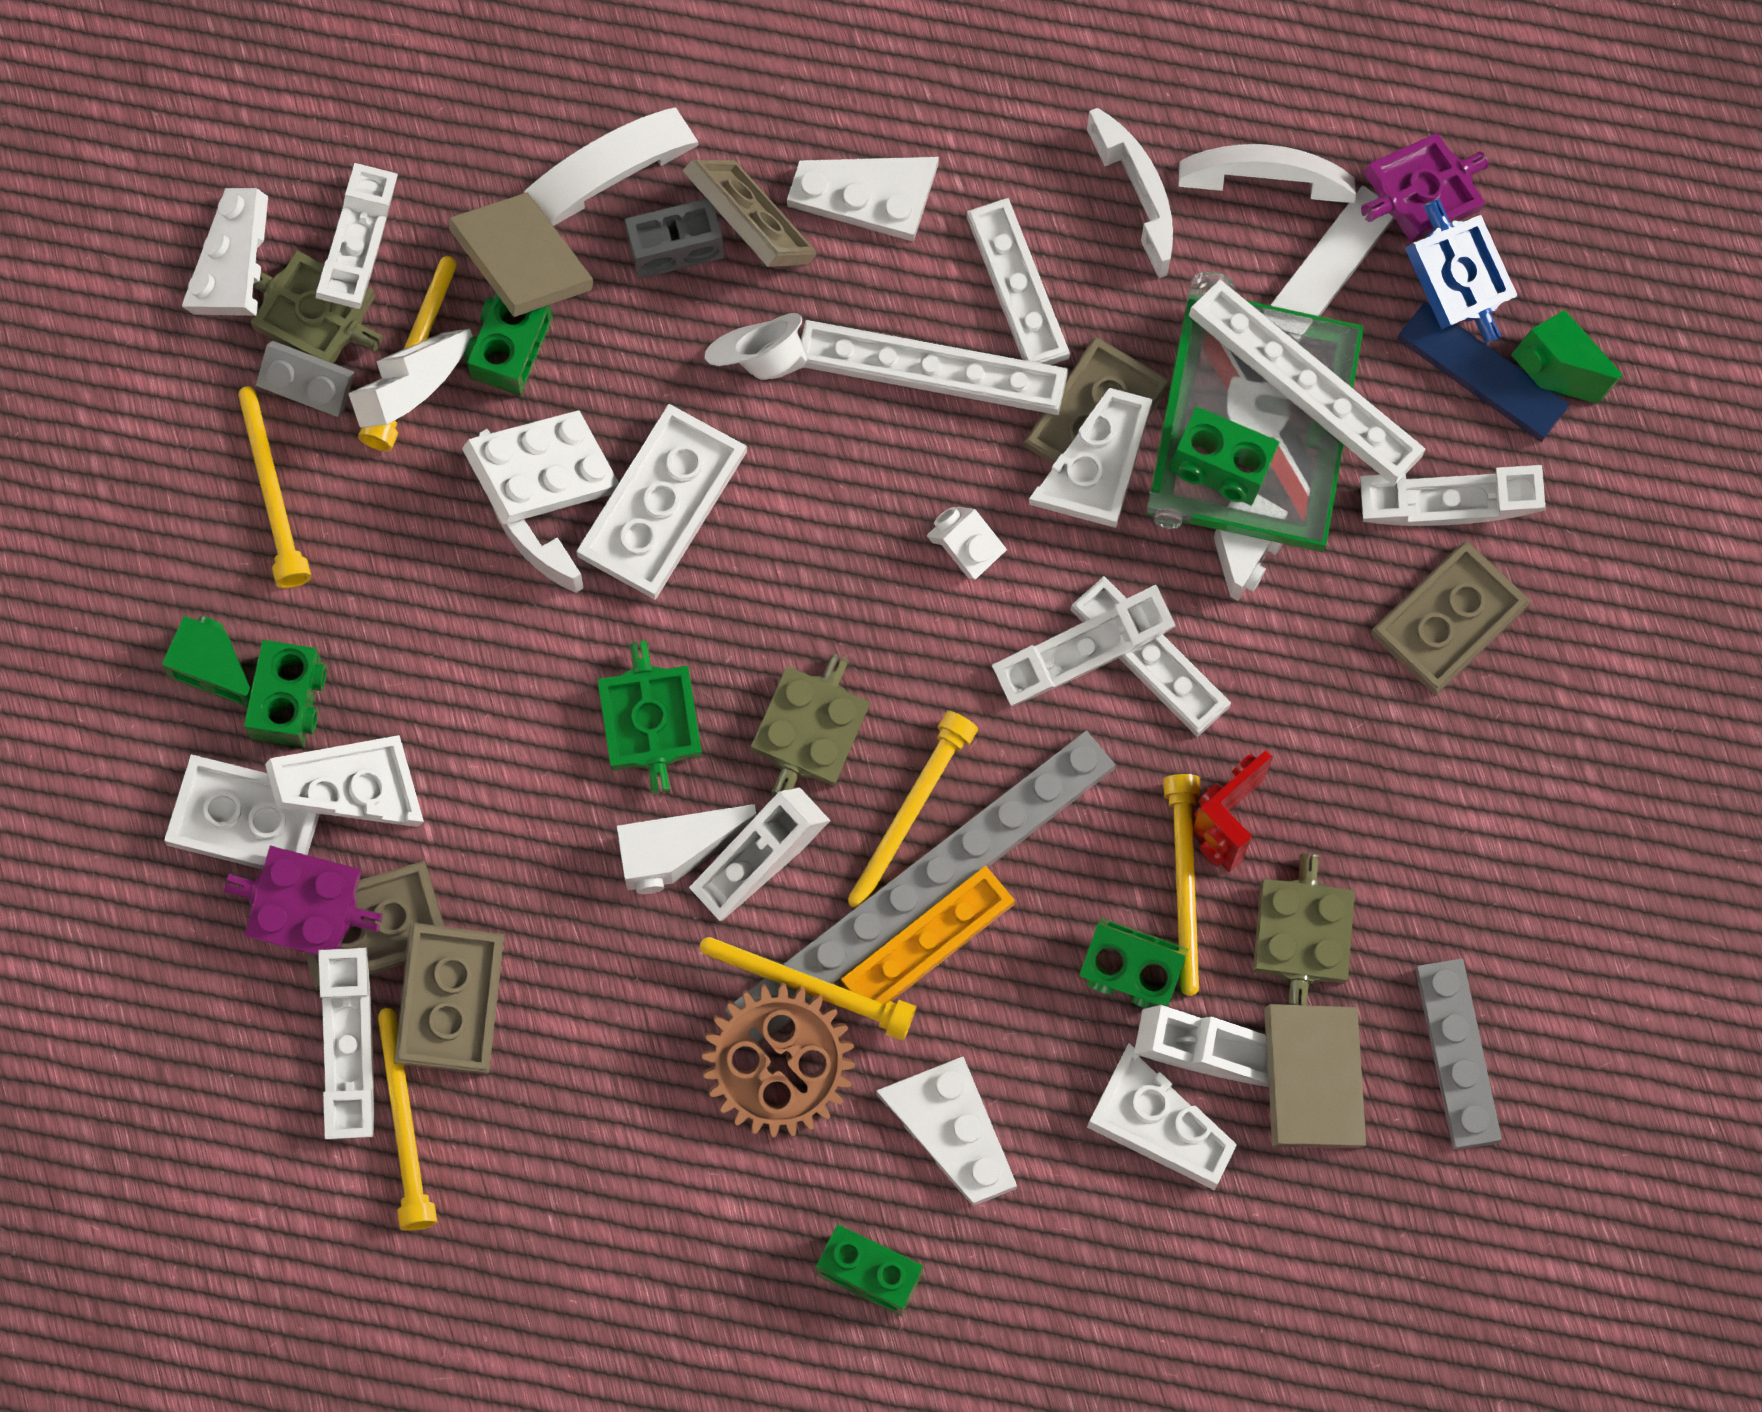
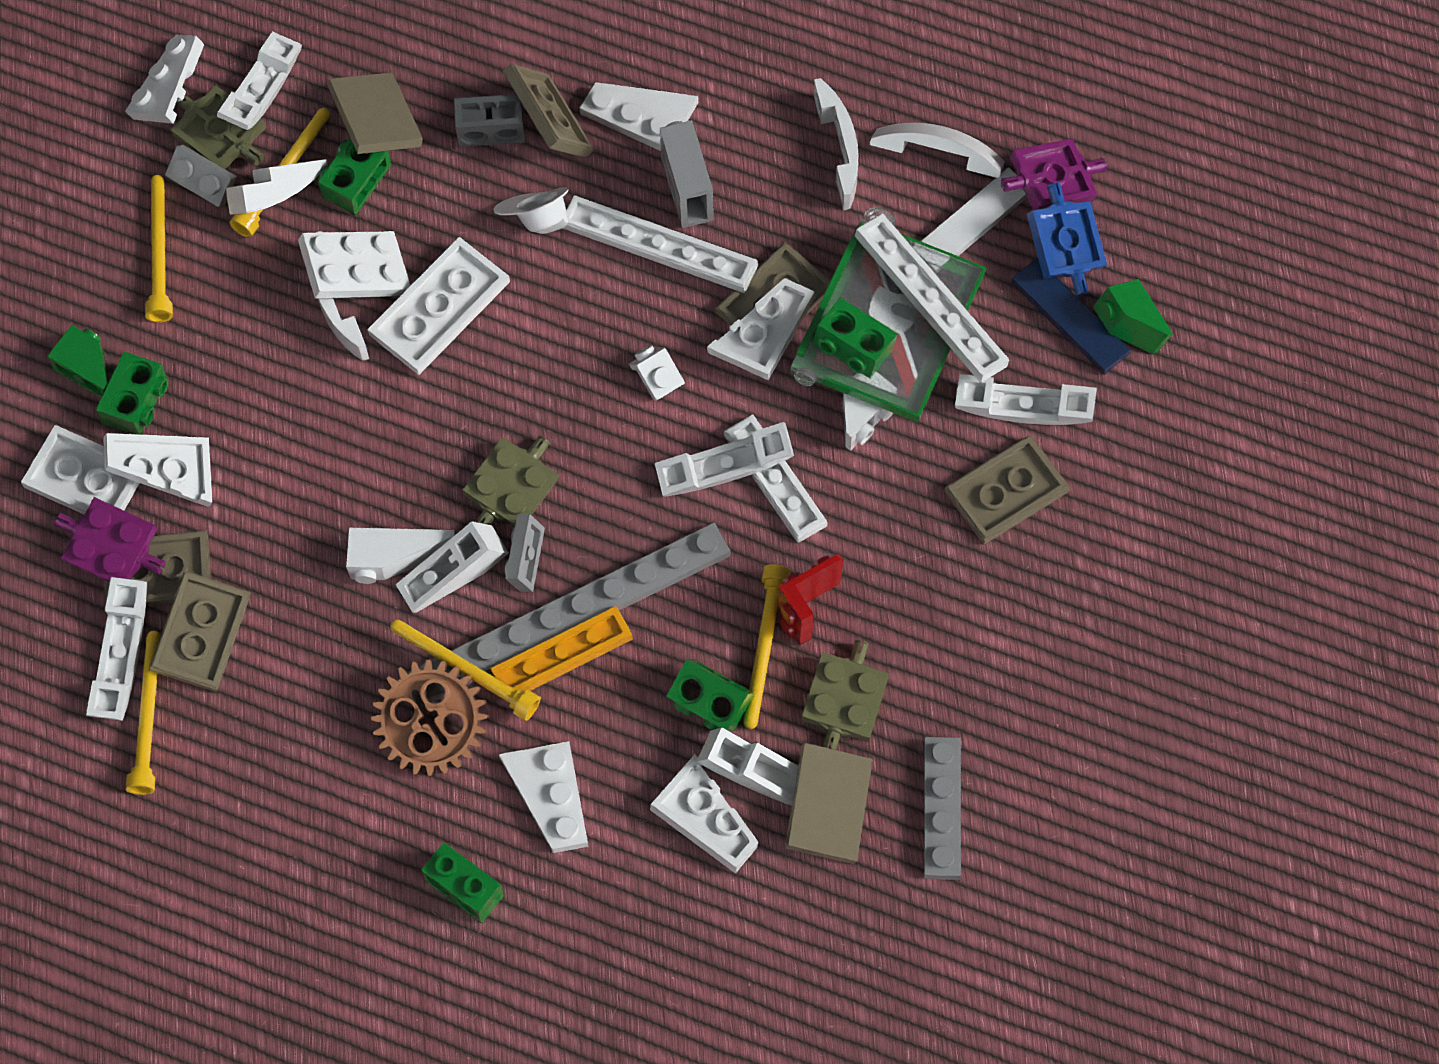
camera: 15 degrees right, 5 degrees down
(609, 161) = (456, 59): white slope -> none
(649, 718) = (394, 457): green plate -> none
(851, 826) = (524, 553): none -> light grey plate
(951, 267) = (686, 173): none -> light grey brick
(953, 735) = (616, 507): yellow piece -> none
(1017, 283) = (737, 195): white tile -> none

